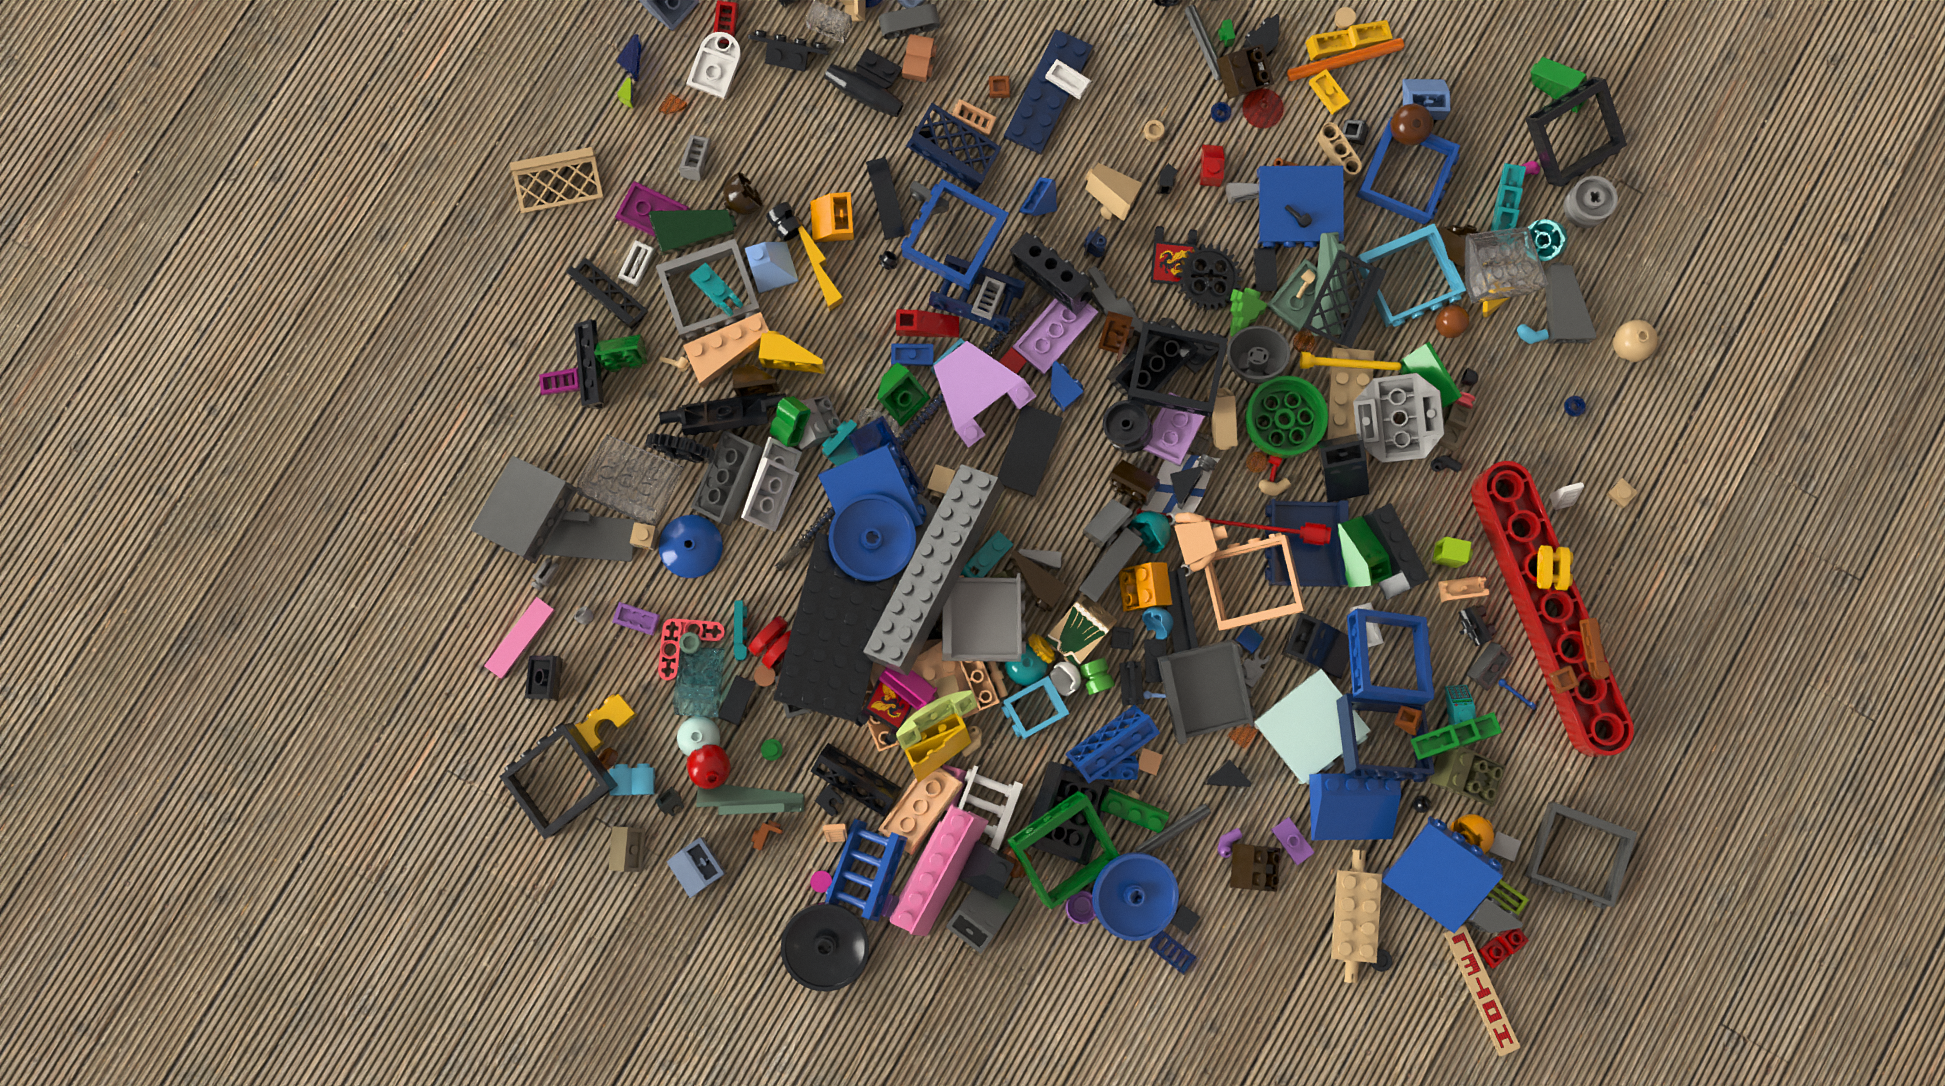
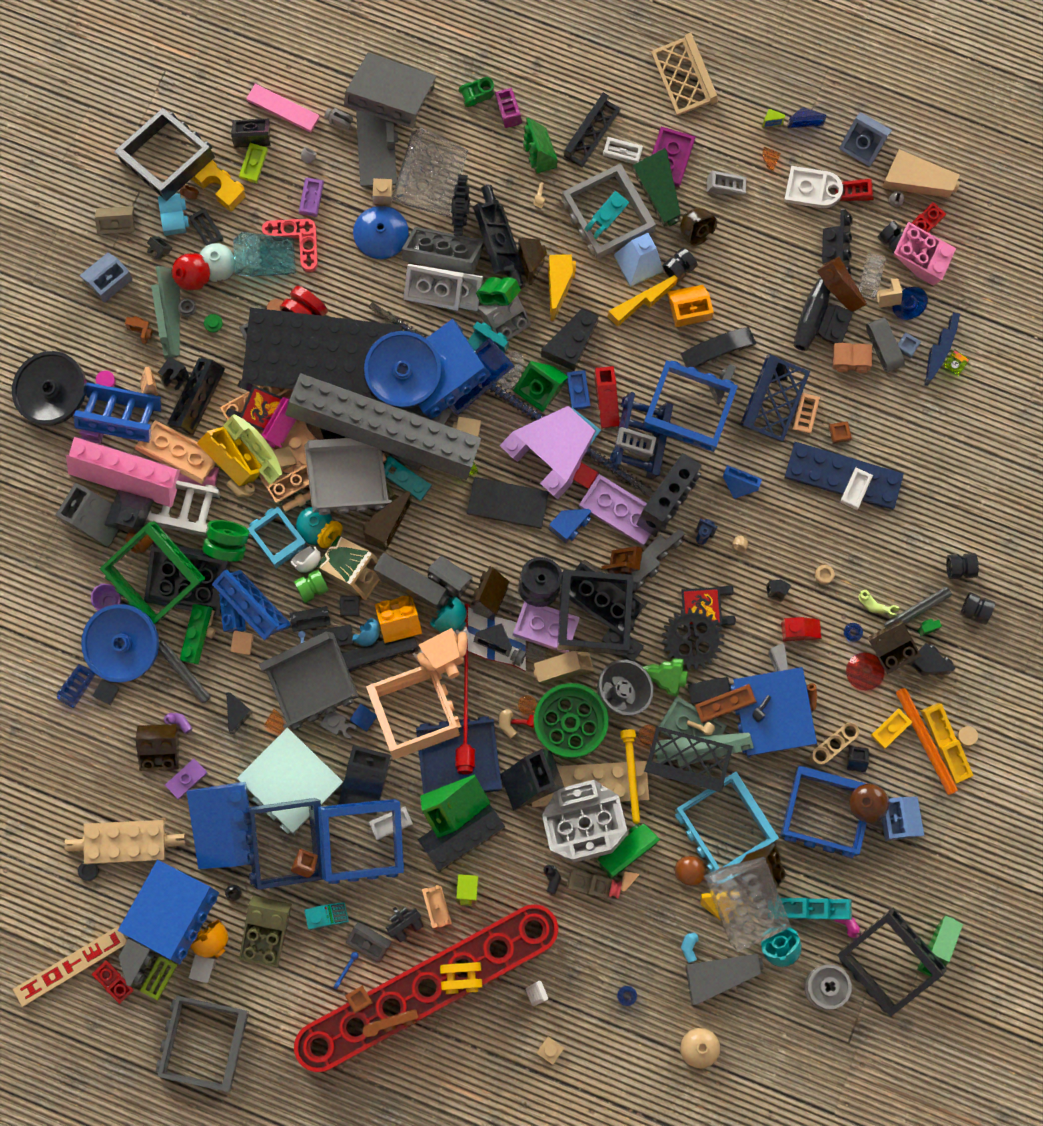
camera: 80 degrees right, 5 degrees down
(538, 417) = (476, 92): none -> green piece
(583, 680) = (253, 163): none -> lime plate
(588, 365) = (514, 125): black fence -> none
(671, 737) = (198, 215): none -> black tile
(690, 643) = (295, 242): sand green tile -> none
(724, 347) = (554, 227): light nougat wedge -> none
(737, 700) = (252, 288): black slope -> none
(740, 632) = (312, 280): teal hinge -> none
(744, 772) = (187, 303): none -> dark grey plate
(836, 52) = (841, 284): none -> reddish brown slope
(855, 351) = (571, 341): none -> black wedge
(888, 260) = (660, 357): black plate -> none
(1036, 763) = (225, 540): none -> green wheel
(1049, 559) = (410, 533): light grey slope -> none
(1113, 189) = (759, 542): tan slope -> none
(1195, 87) = (868, 601): none -> yellowish green arm
(1286, 253) = (725, 703): none -> dark orange tile
(1456, 736) = (294, 906): green slope -> none
(1460, 383) = (627, 879): none -> light nougat slope
(1469, 377) = (638, 892): black hinge -> none

